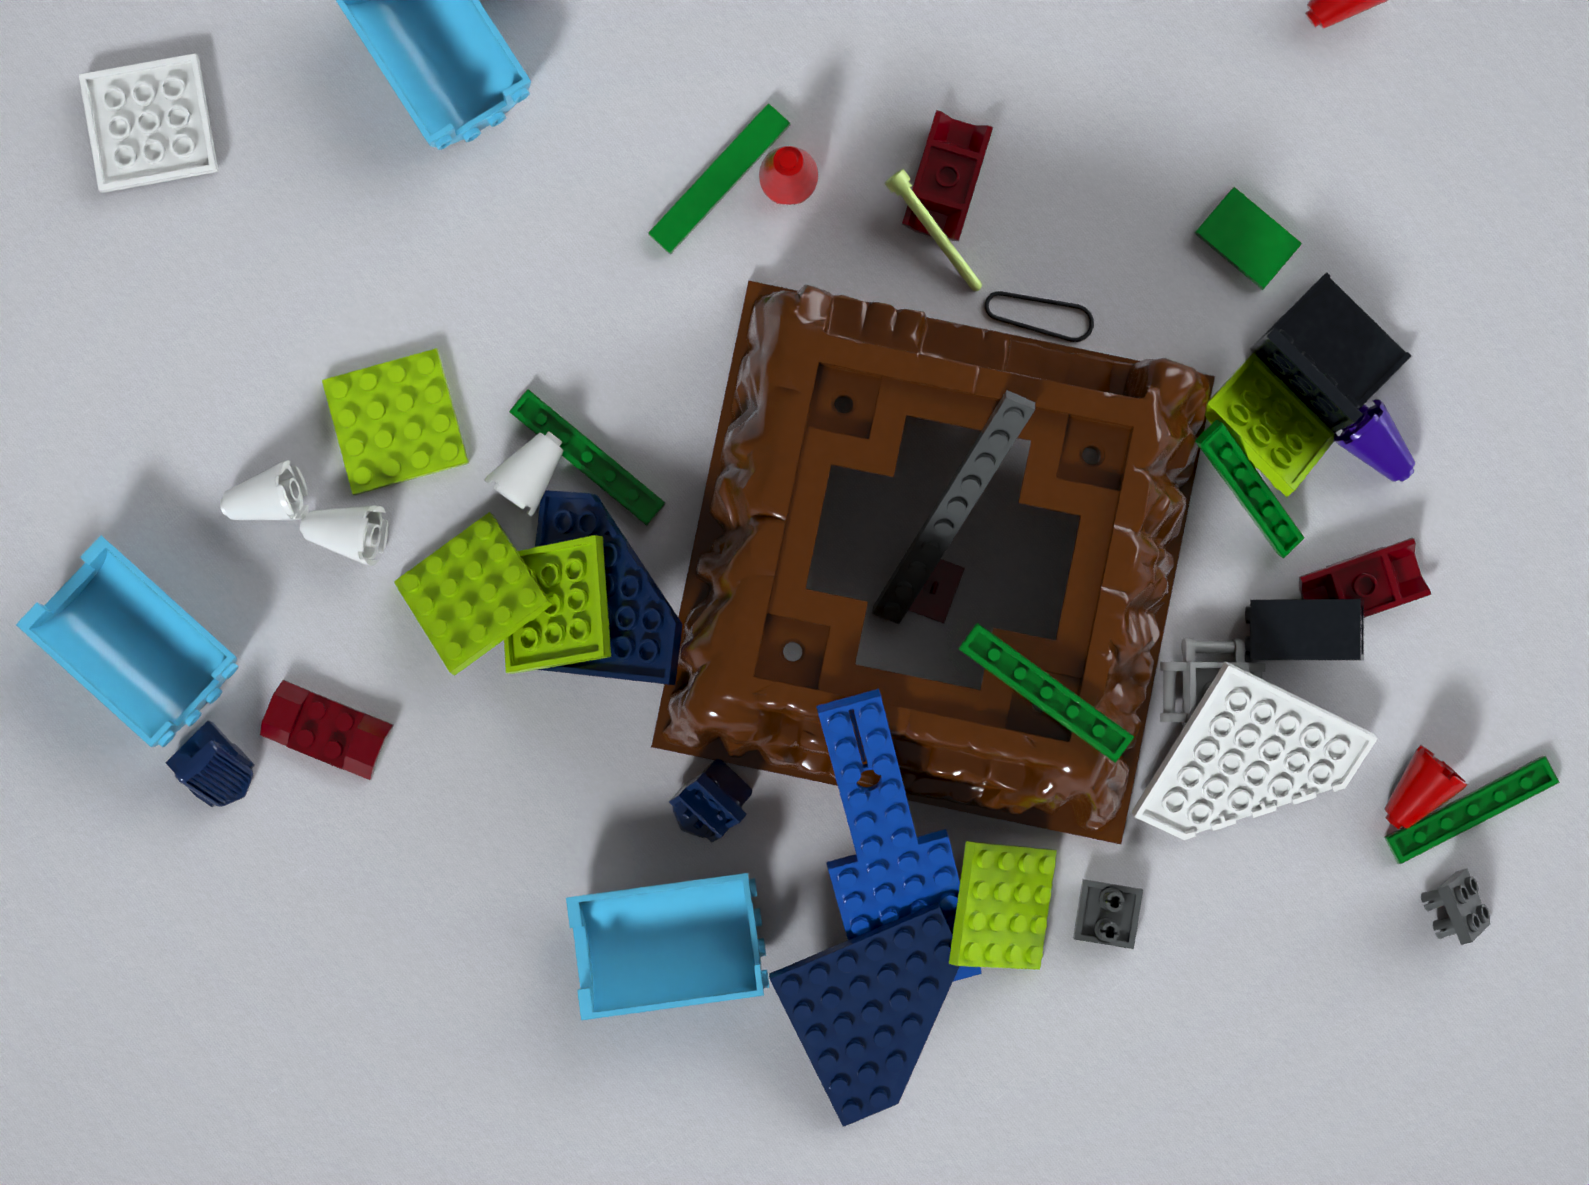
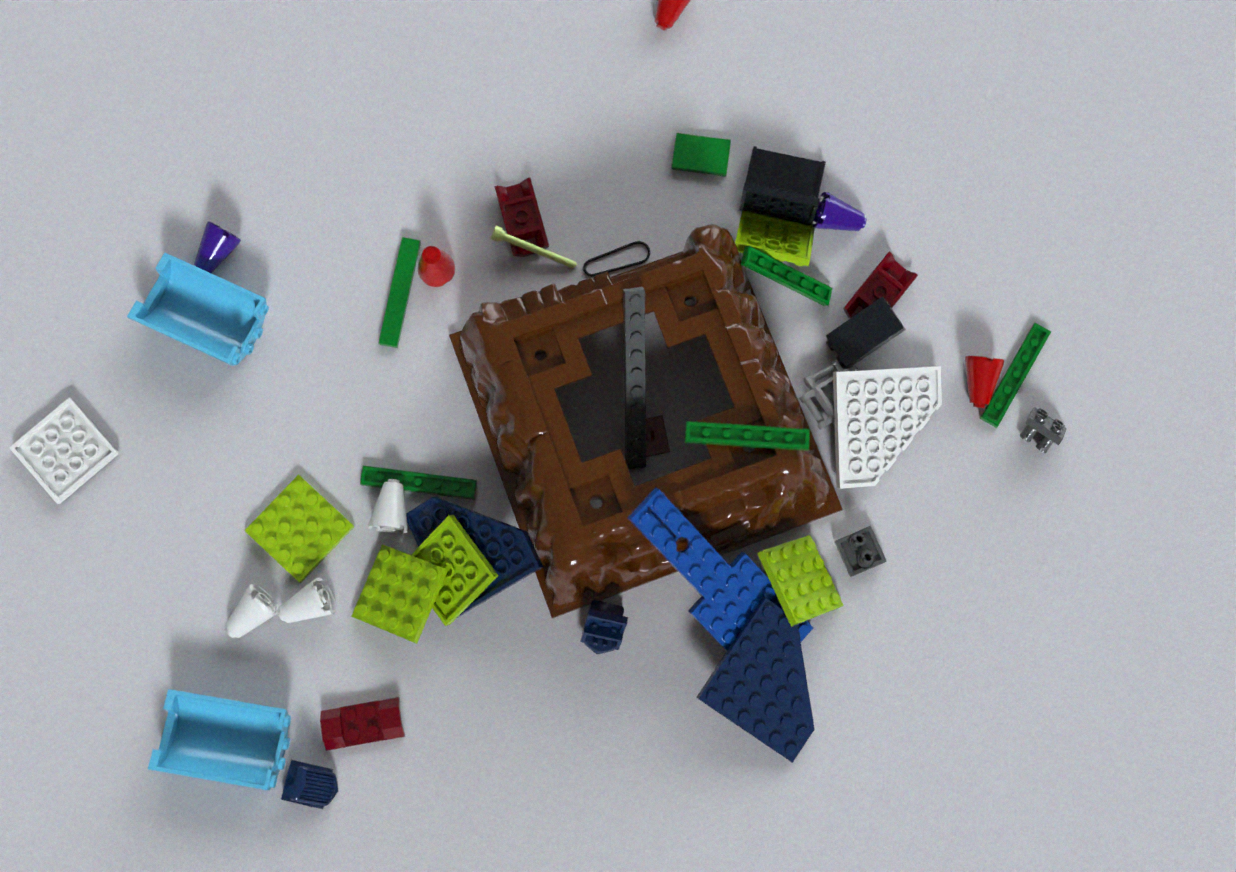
camera: 30 degrees left, 10 degrees down
(667, 946) = (628, 719): medium azure cylinder -> none

